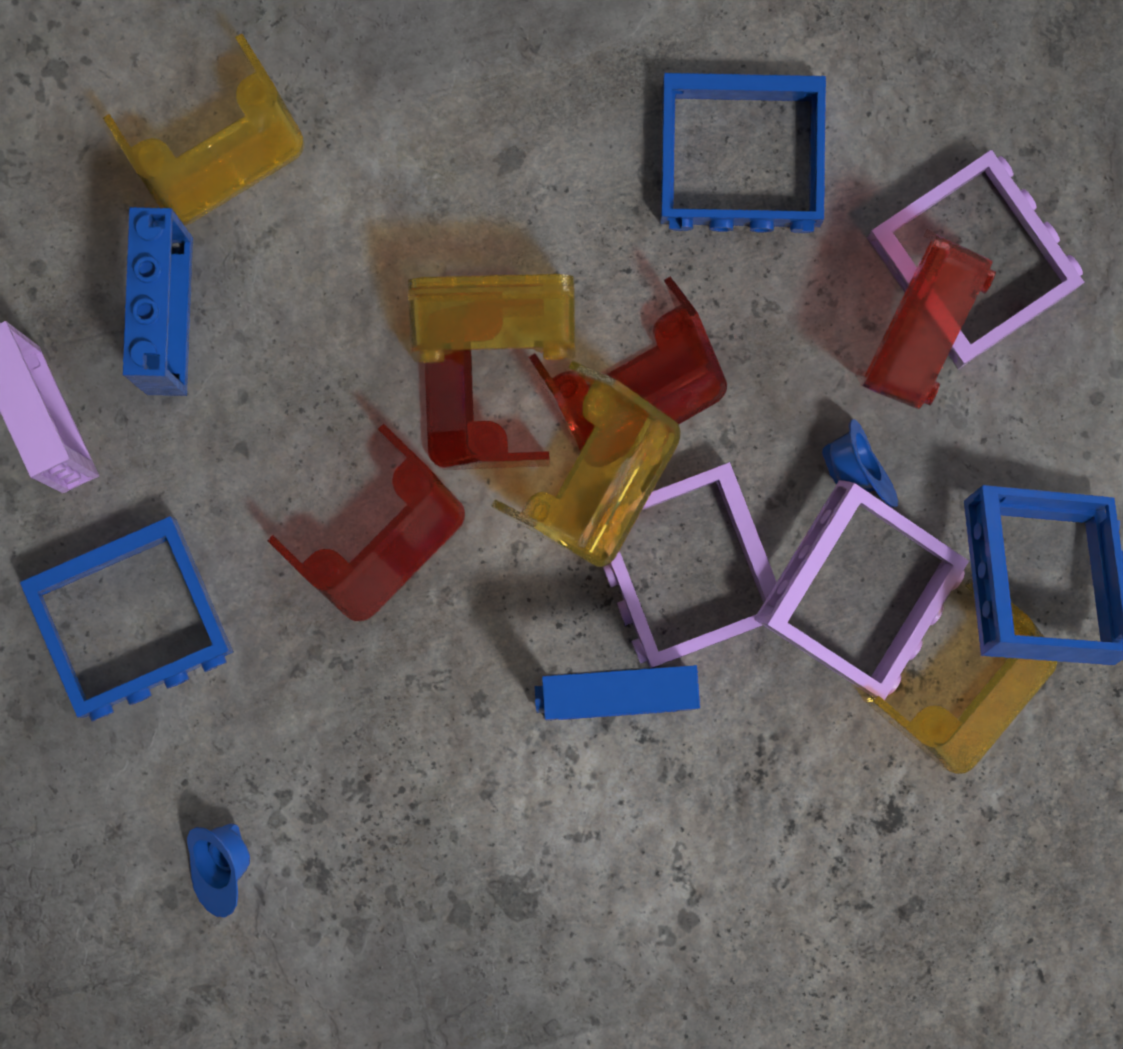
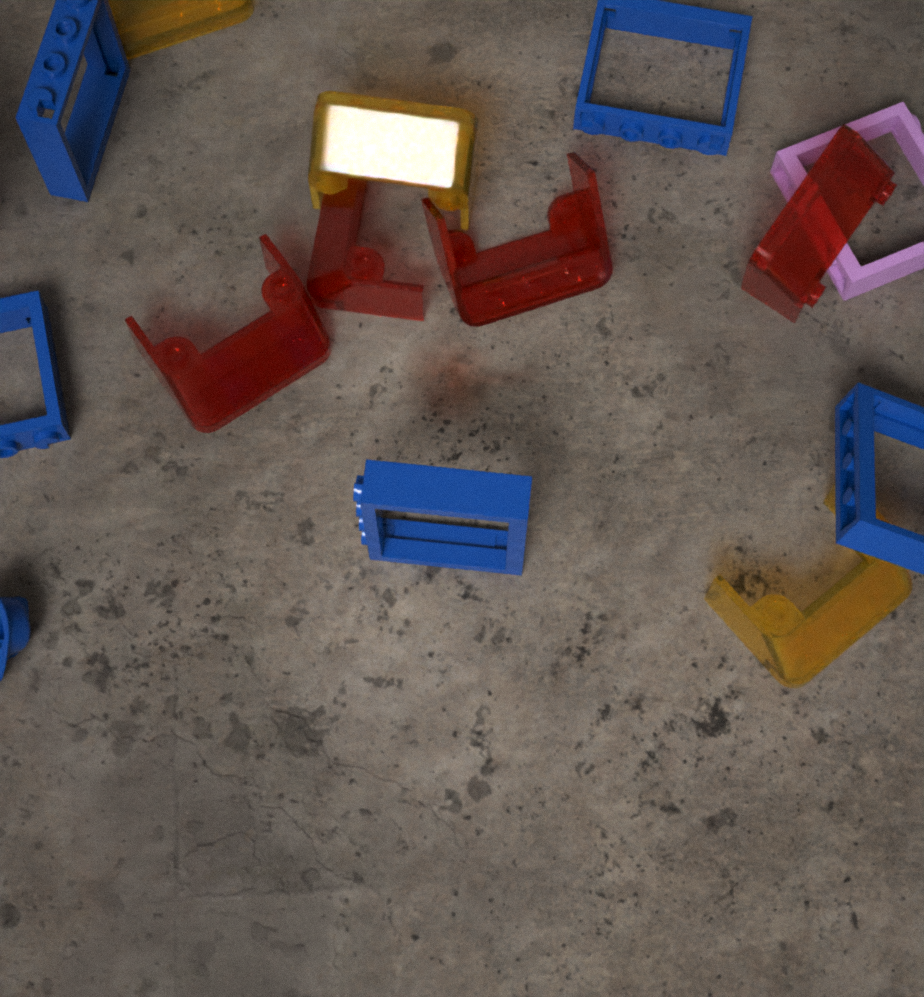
camera: 10 degrees right, 15 degrees down
(608, 478) = (485, 319): clear yellow windscreen -> none
(751, 545) = (565, 500): lavender window -> none
(810, 558) = (664, 528): lavender window -> none
(853, 461) = (726, 363): blue piece -> none

